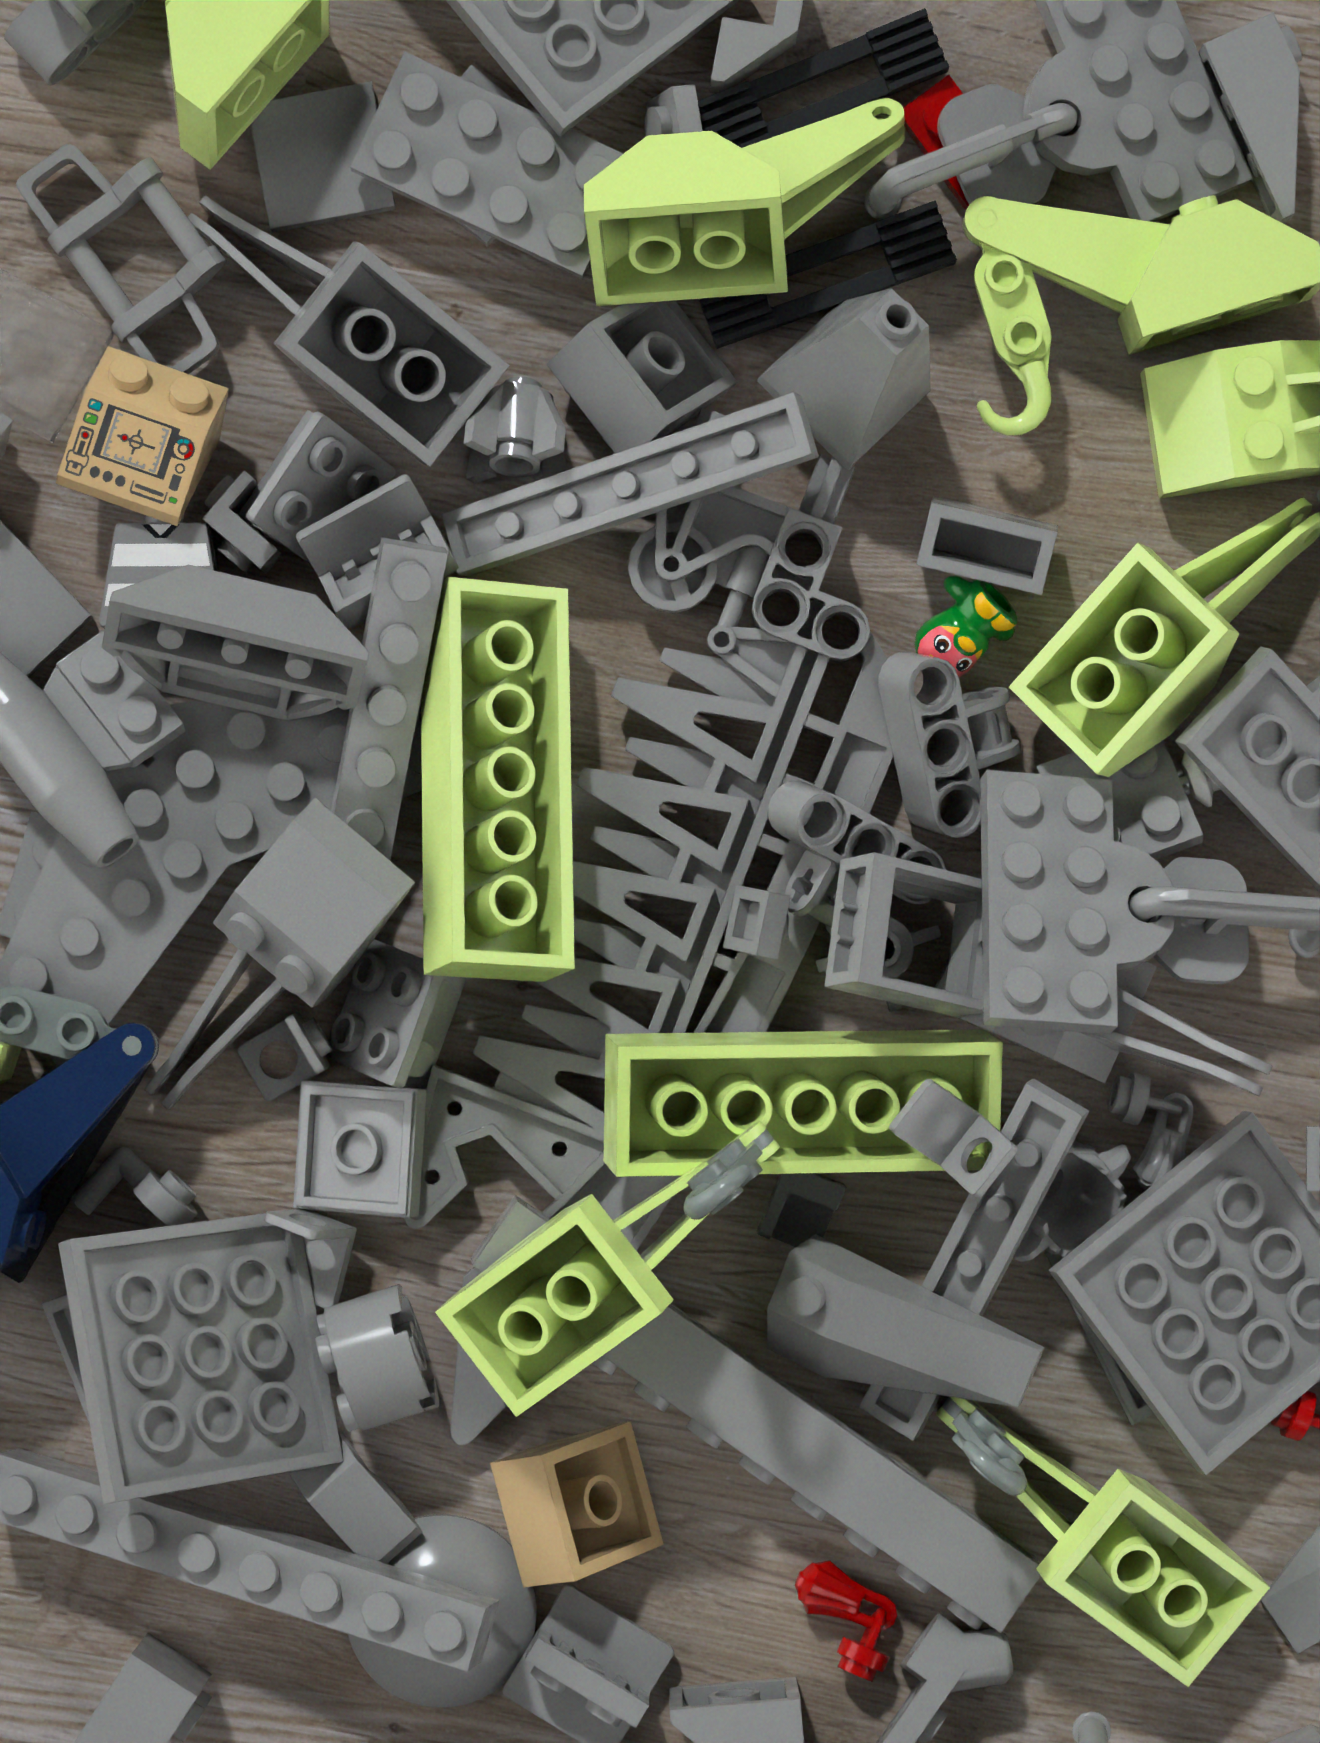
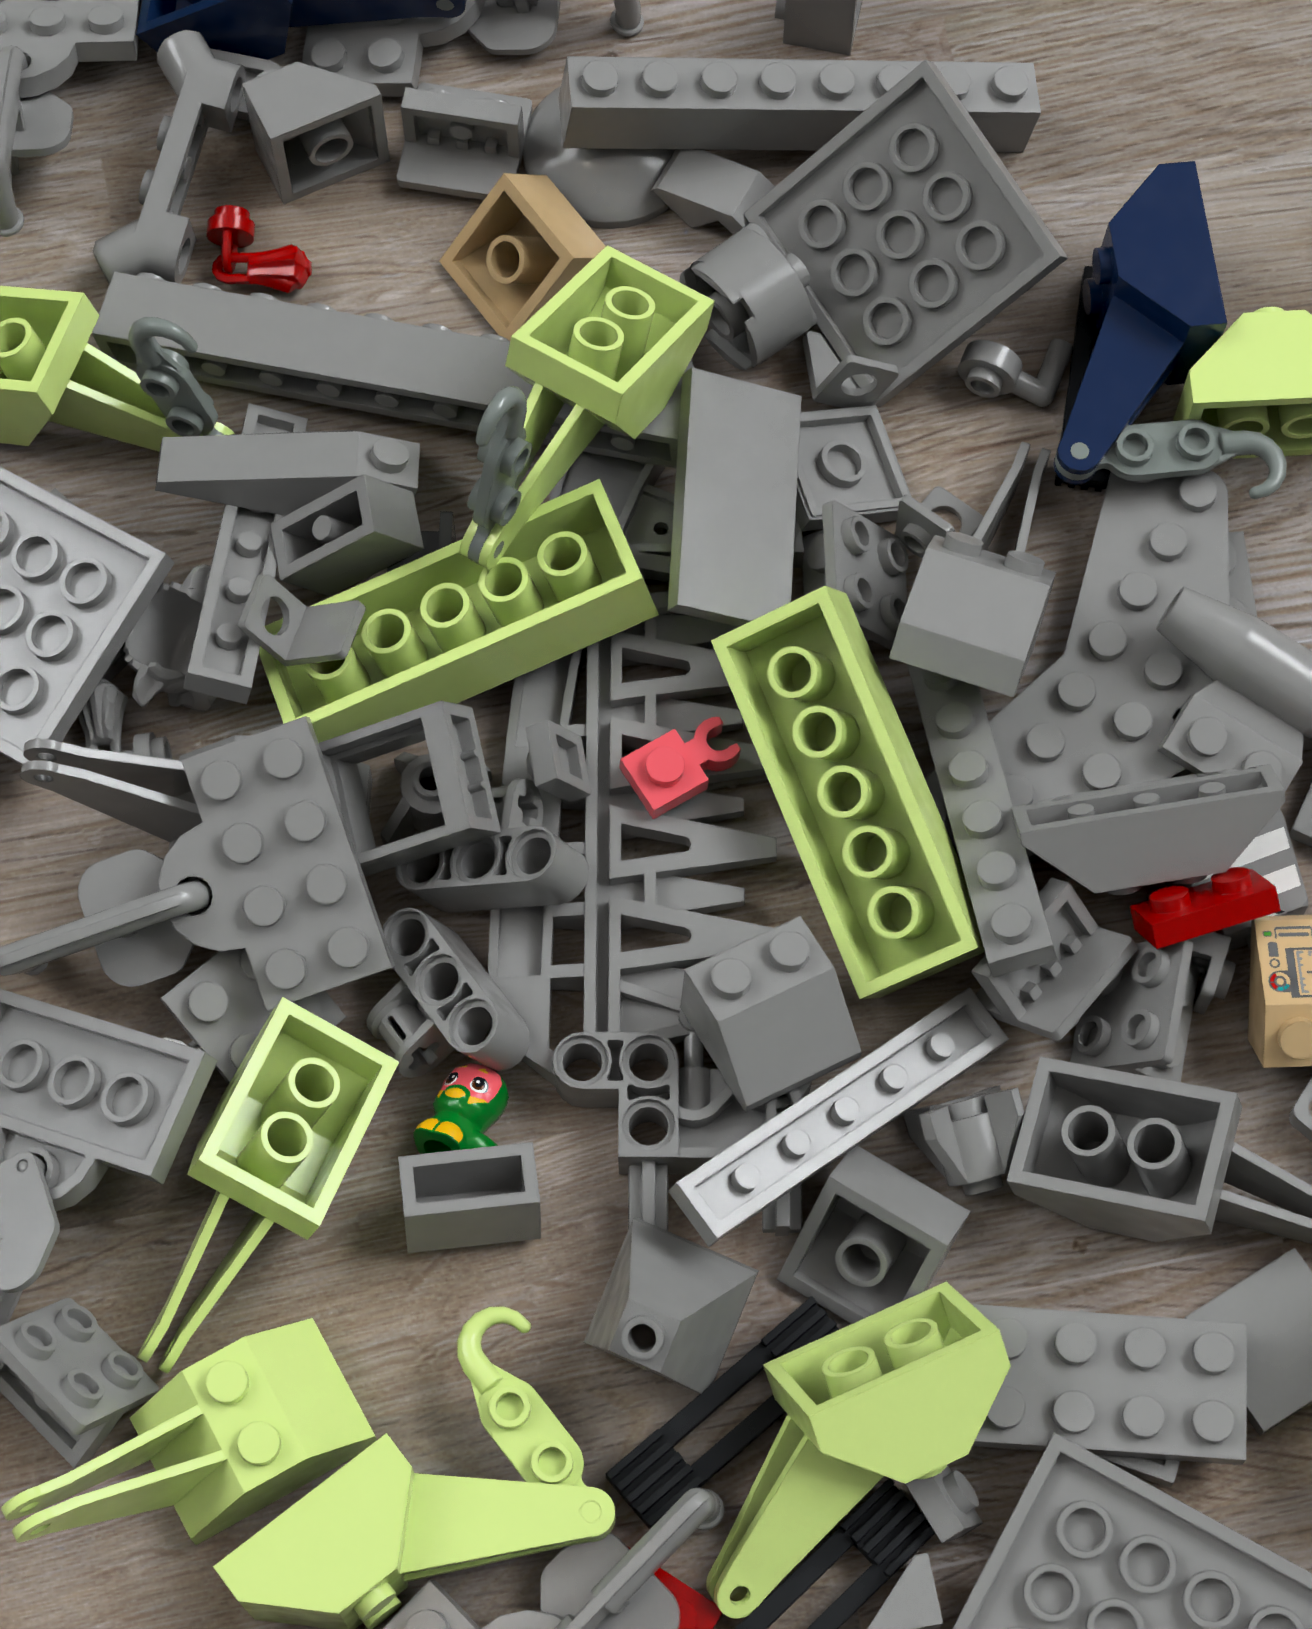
camera: 155 degrees right, 20 degrees down
(221, 542) = (1186, 913): none -> red plate
(486, 1122) = (733, 499): none -> light grey tile
(653, 879) = (673, 771): none -> coral plate
(656, 596) = (770, 1013): none -> light grey slope
(874, 1229) = (347, 535): none -> light grey brick

